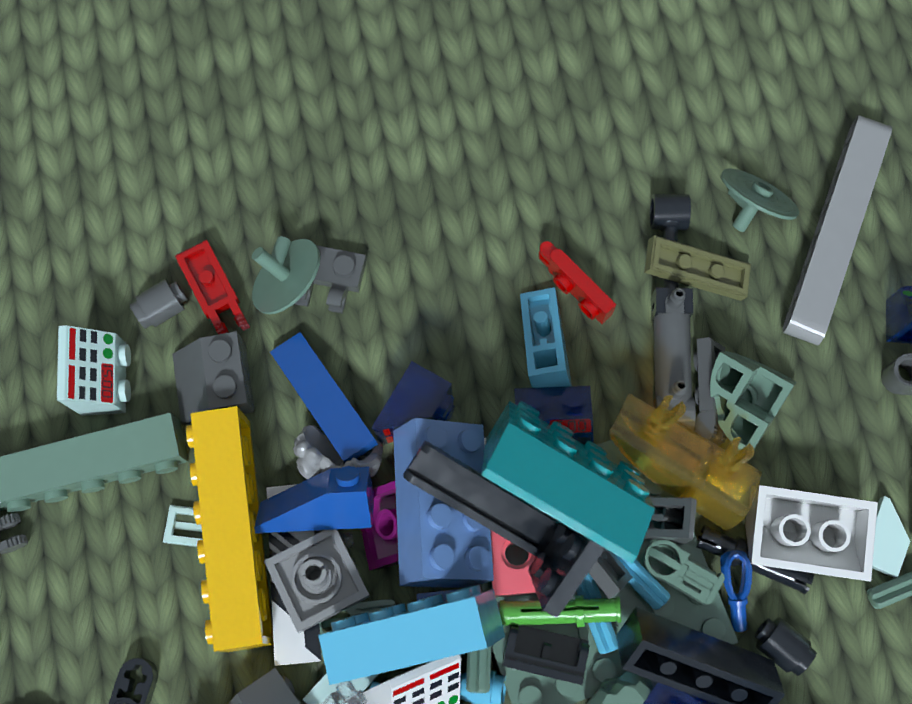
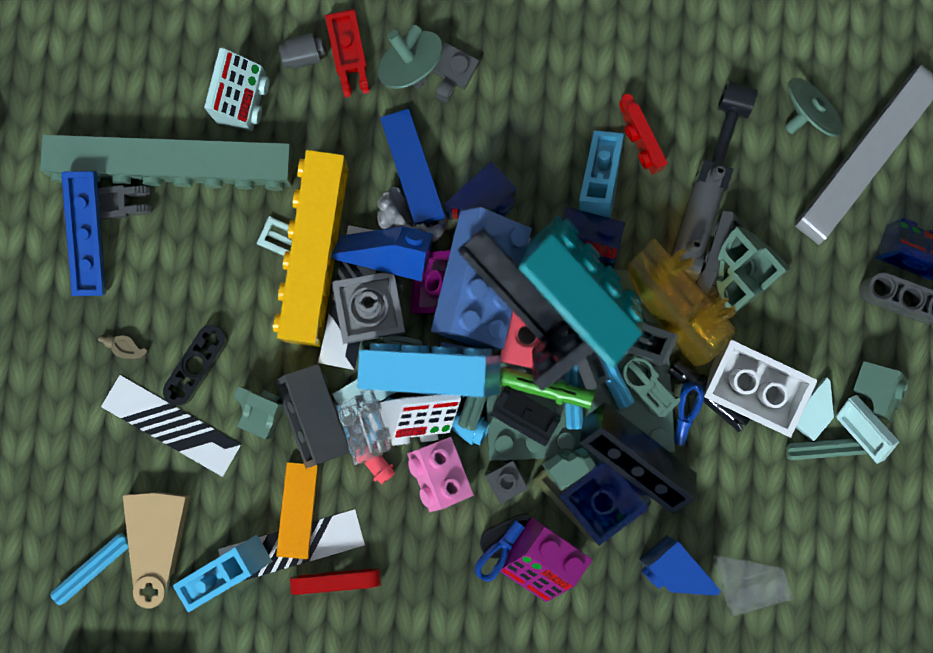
camera: 10 degrees right, 10 degrees up
(213, 375) = (329, 124): dark grey slope -> none
(697, 268) = (743, 153): olive tile -> none
(785, 646) = (709, 465): black brick -> none

